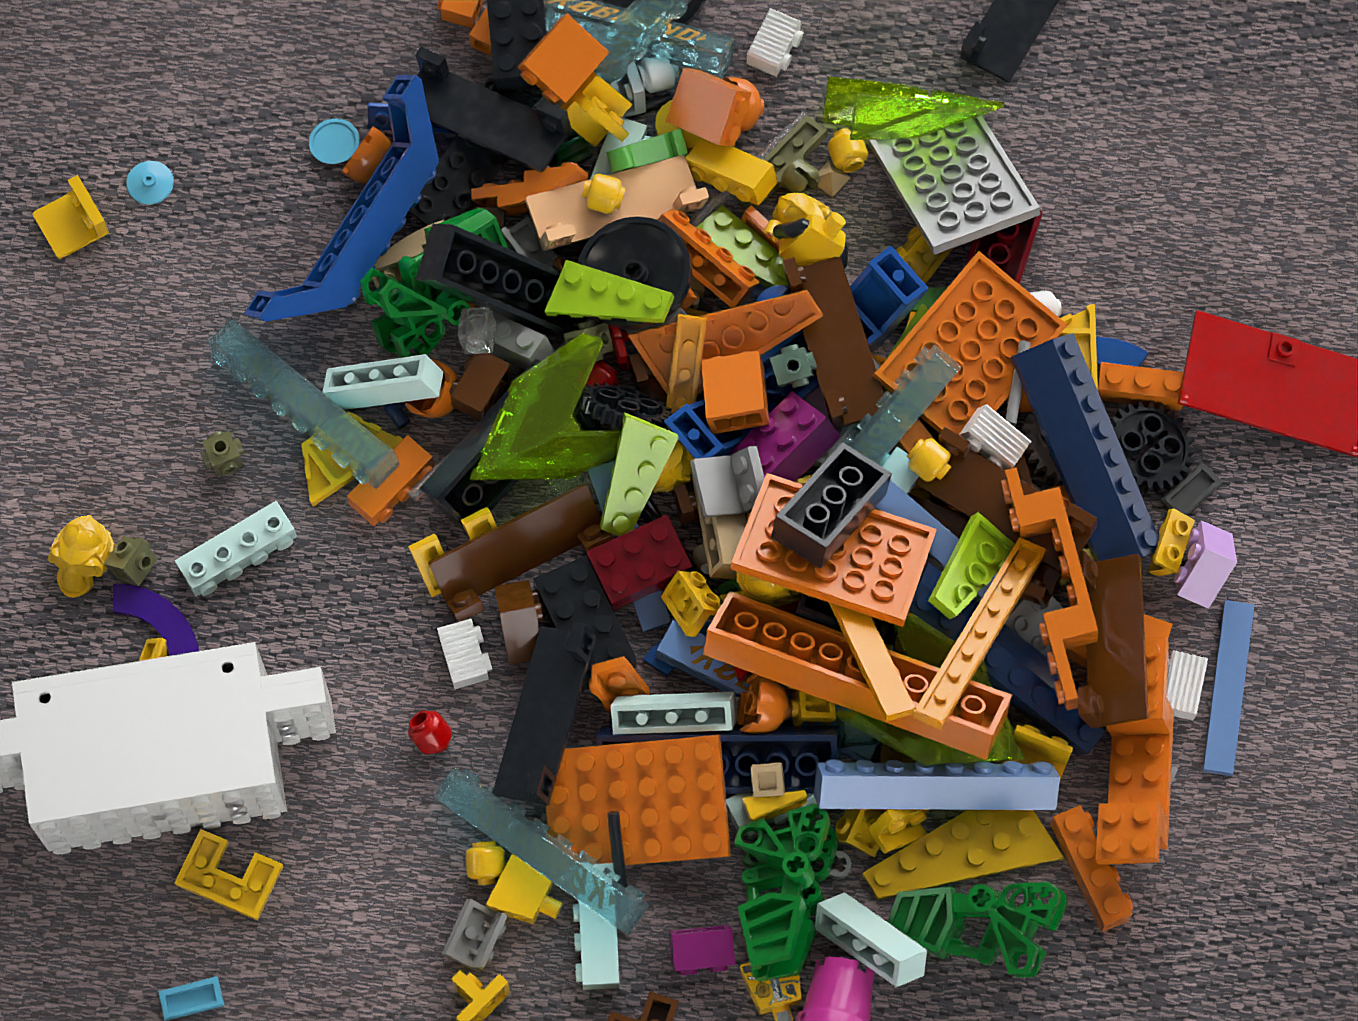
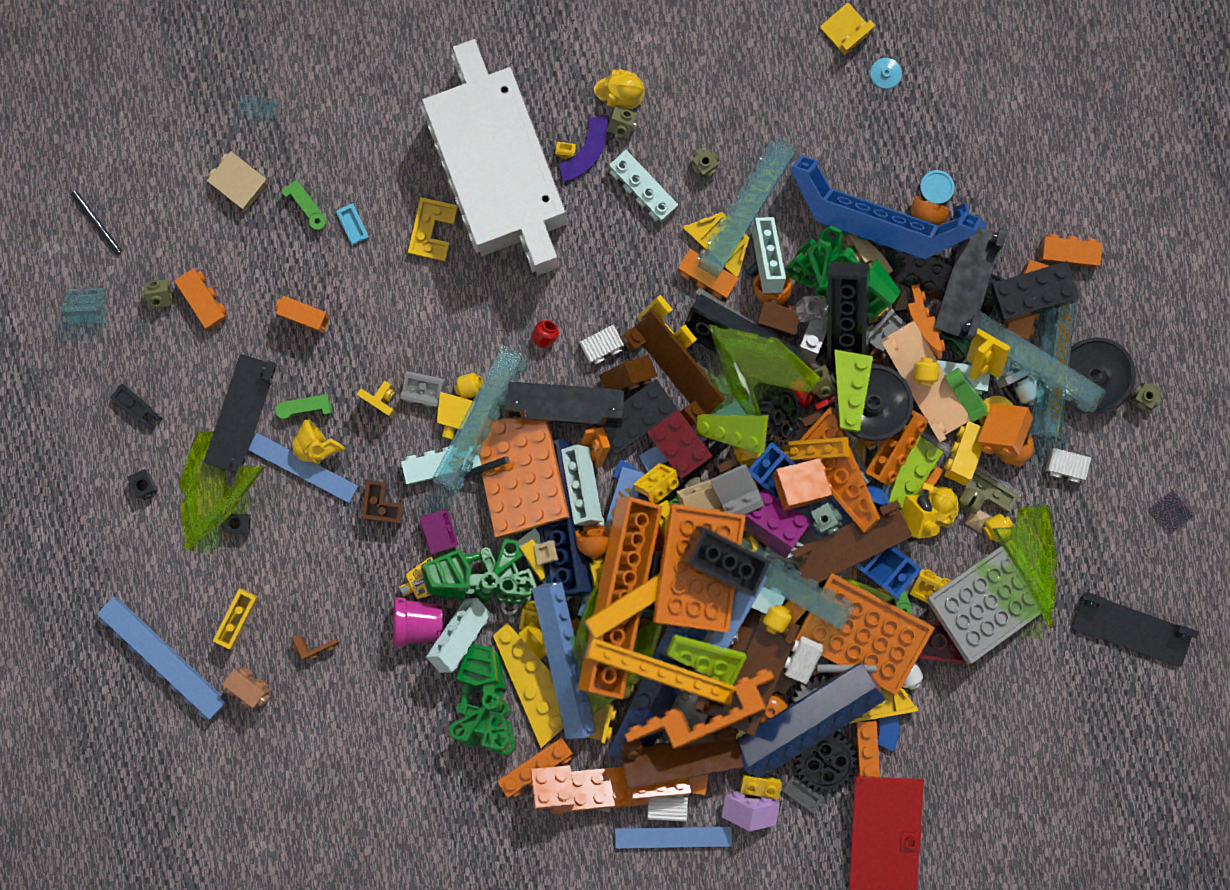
camera: 80 degrees right, 15 degrees up
(562, 60) = (1011, 325): orange brick -> none

